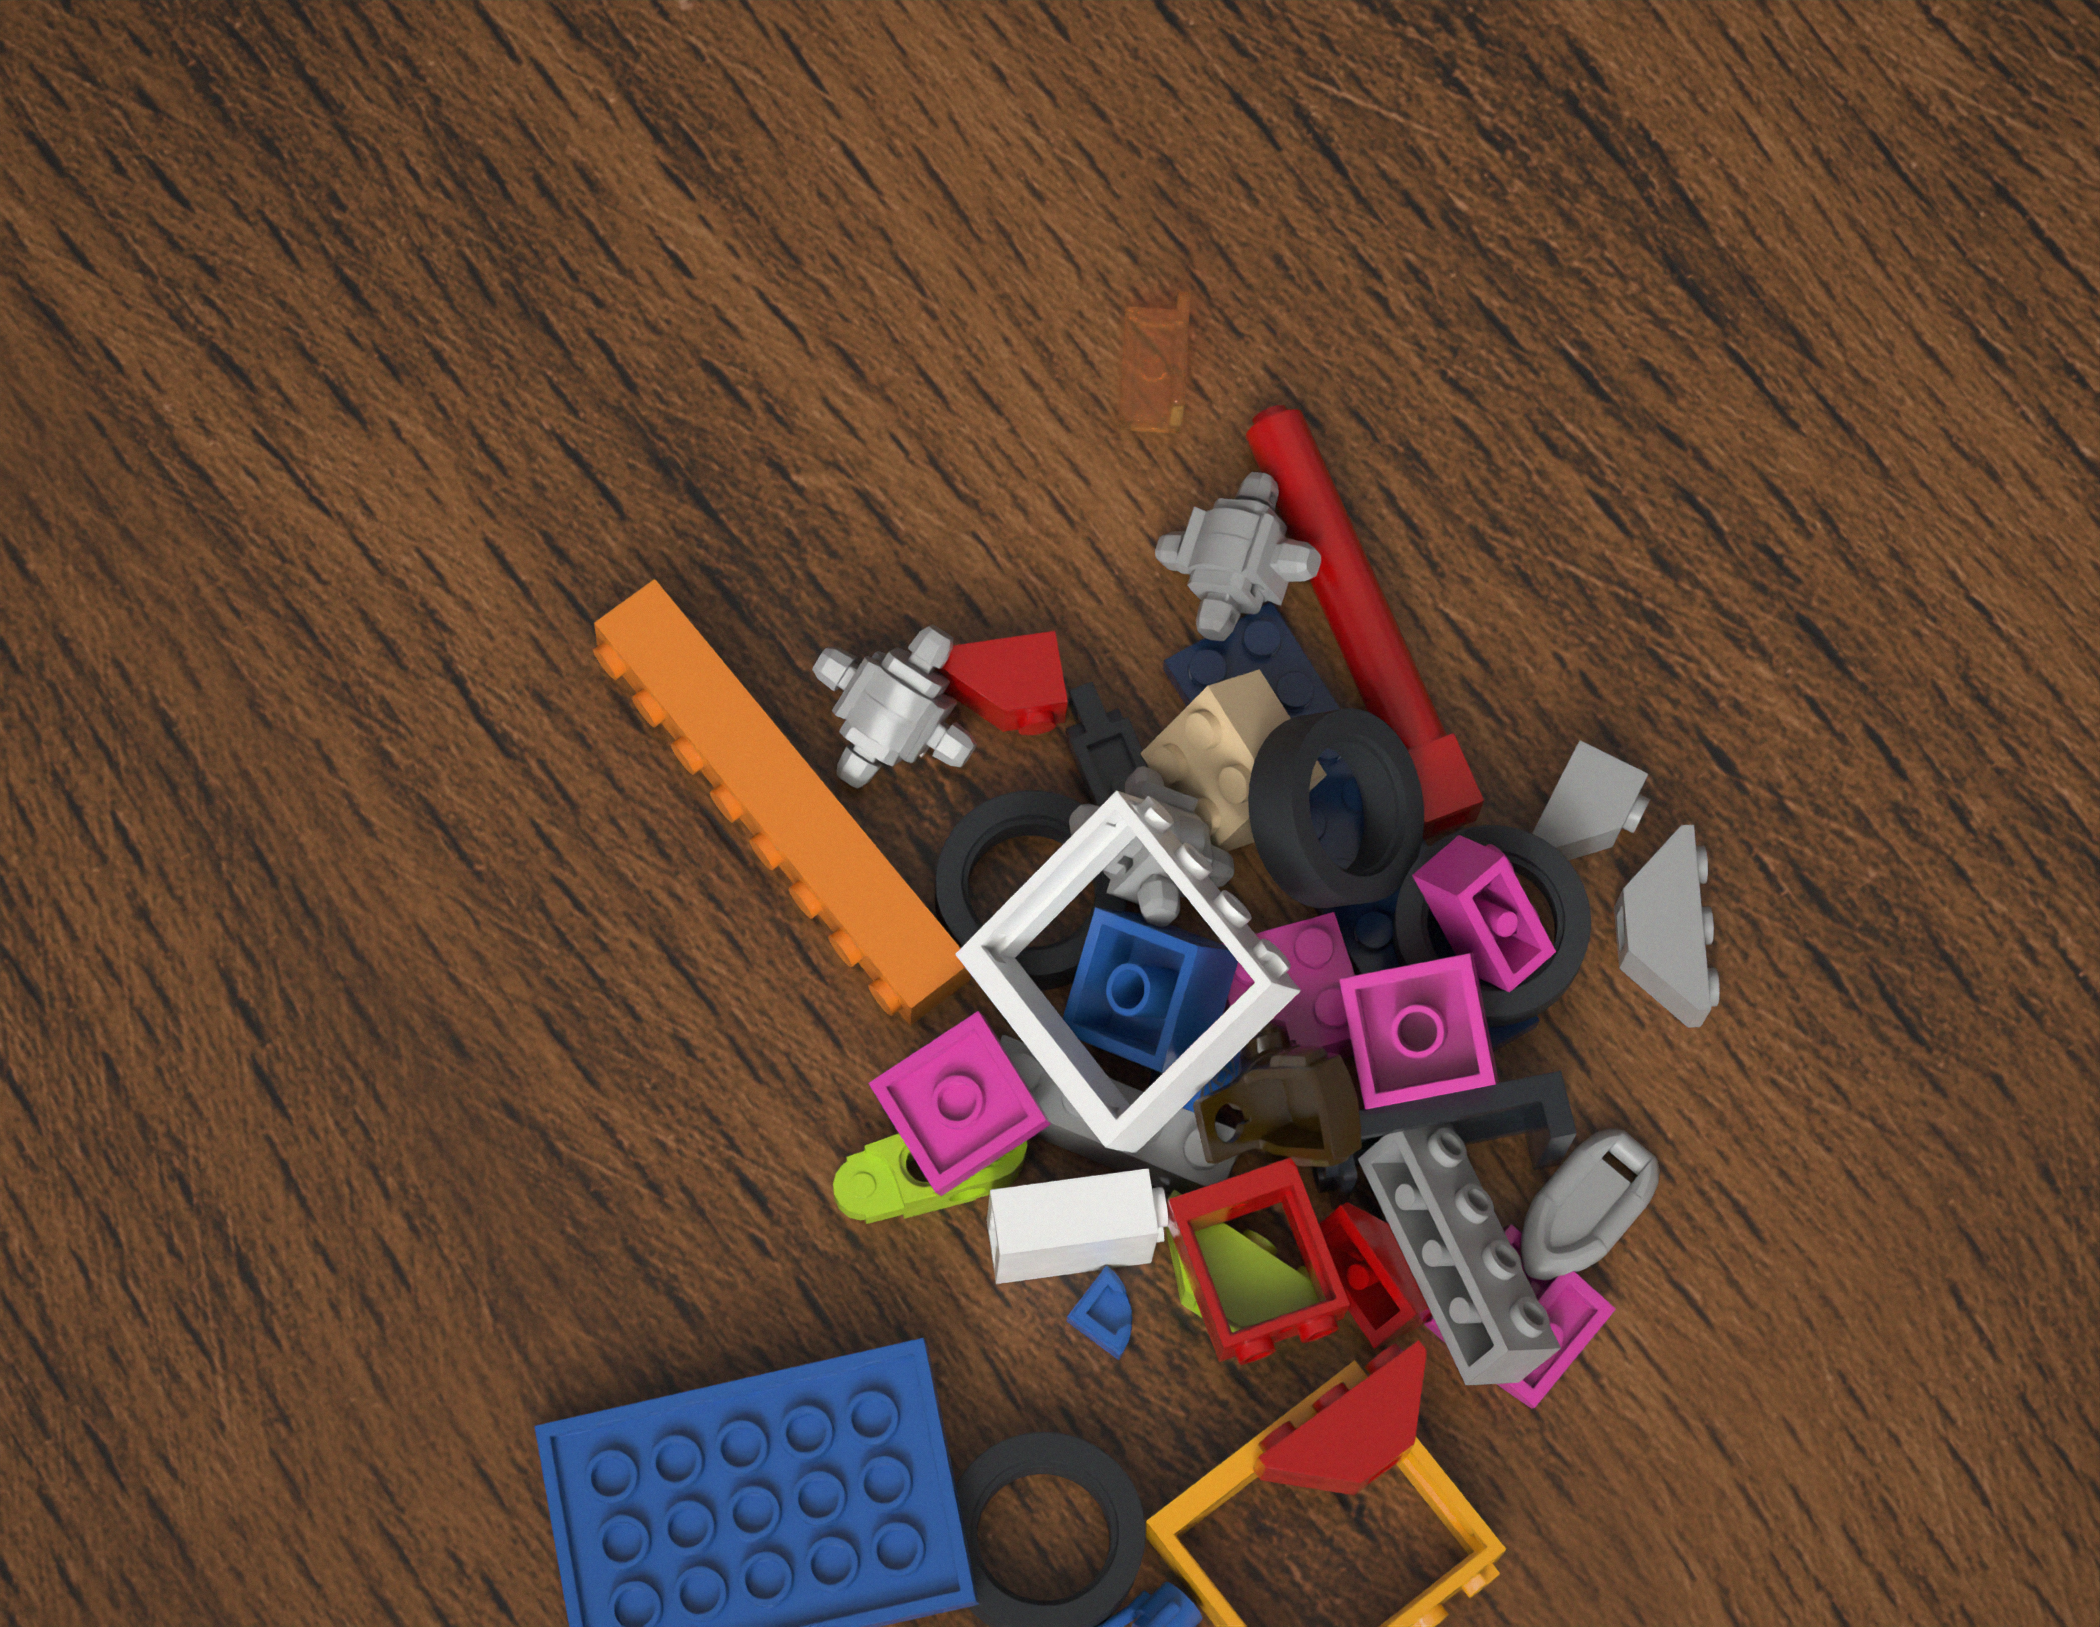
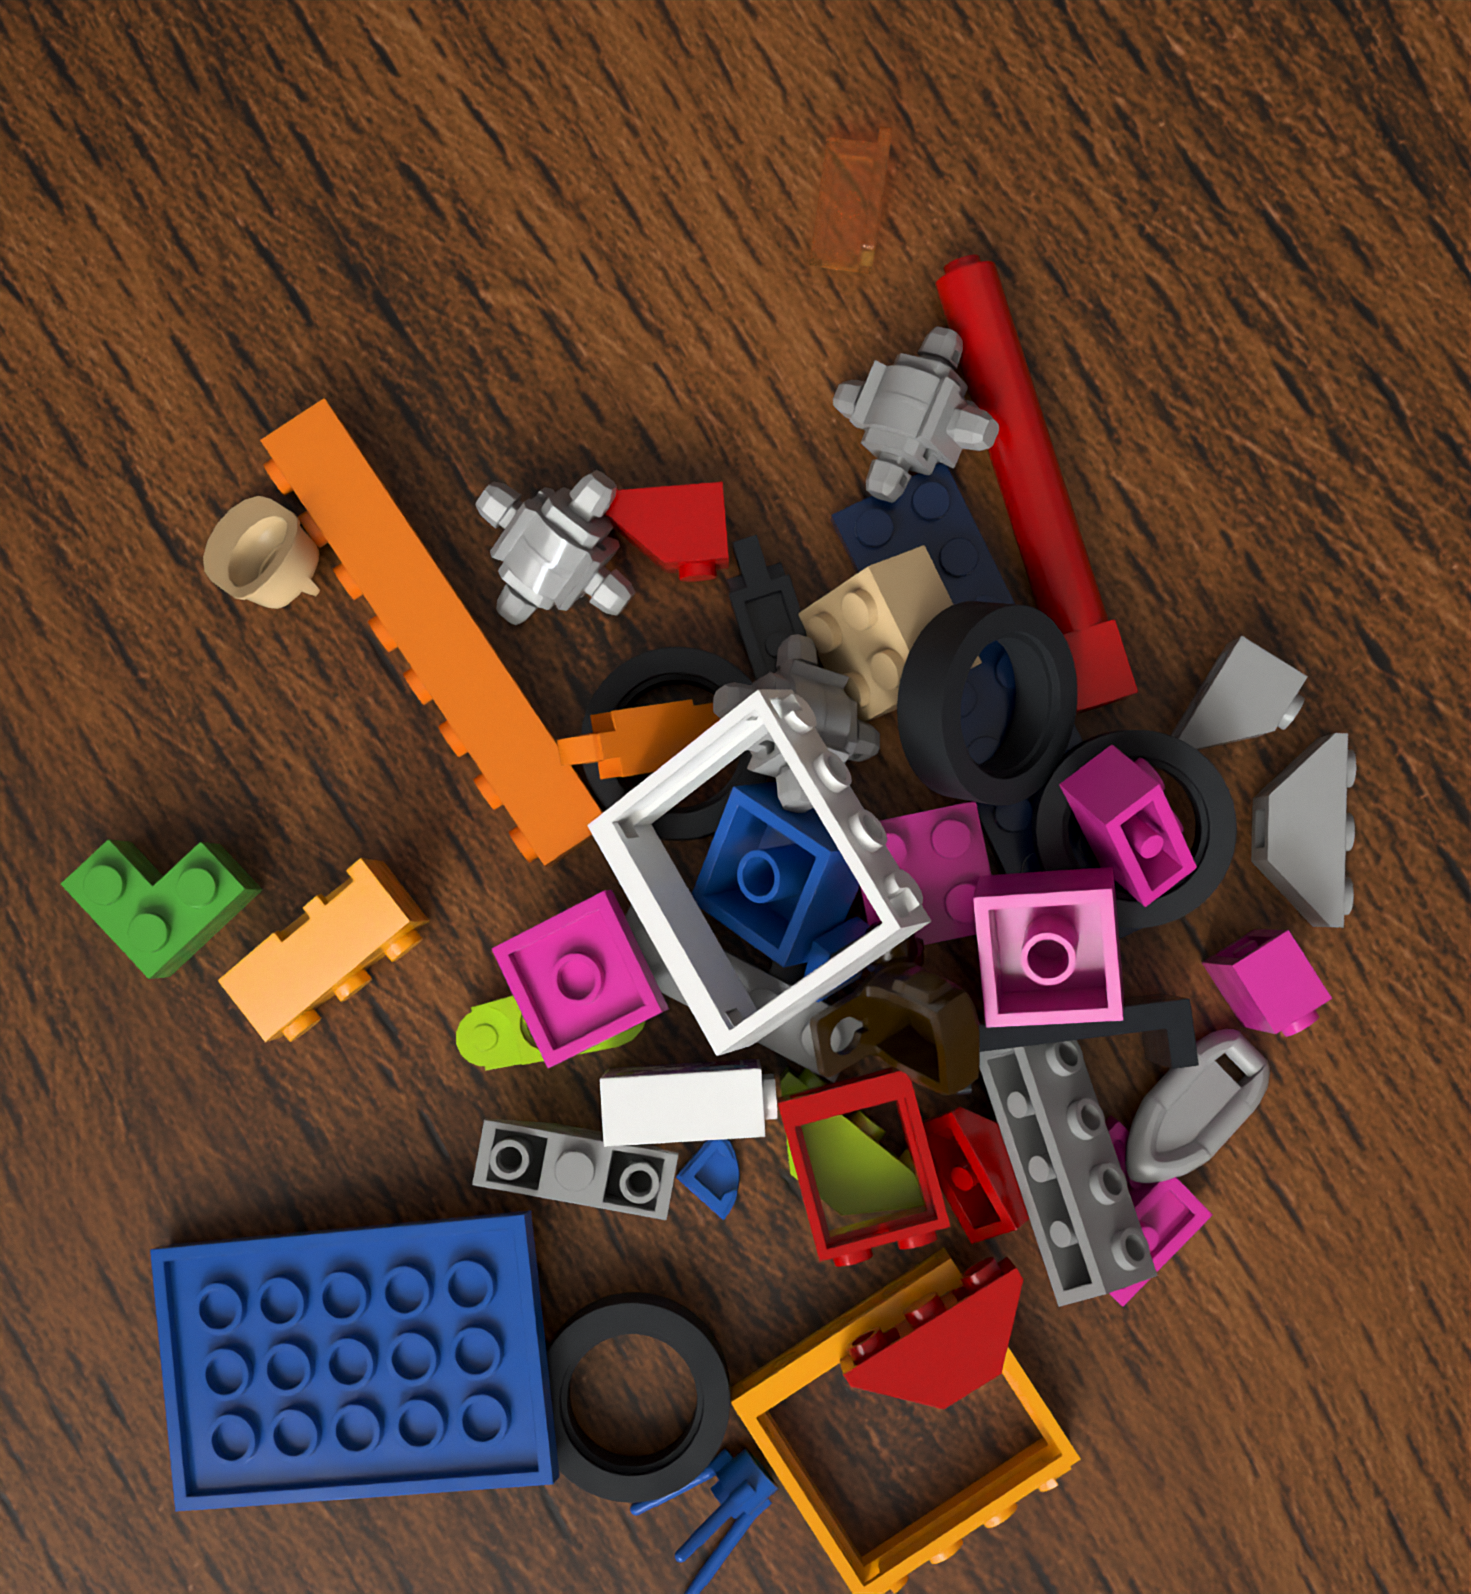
camera: 10 degrees right, 15 degrees up
(524, 1093) = (157, 916): none -> bright green brick
(600, 733) = (261, 554): none -> tan piece
(695, 1112) = (325, 952): none -> light orange wedge
(968, 1303) = (574, 1167): none -> light grey slope
(990, 873) = (638, 737): none -> orange piece
(1640, 1067) = (1268, 982): none -> dark pink brick

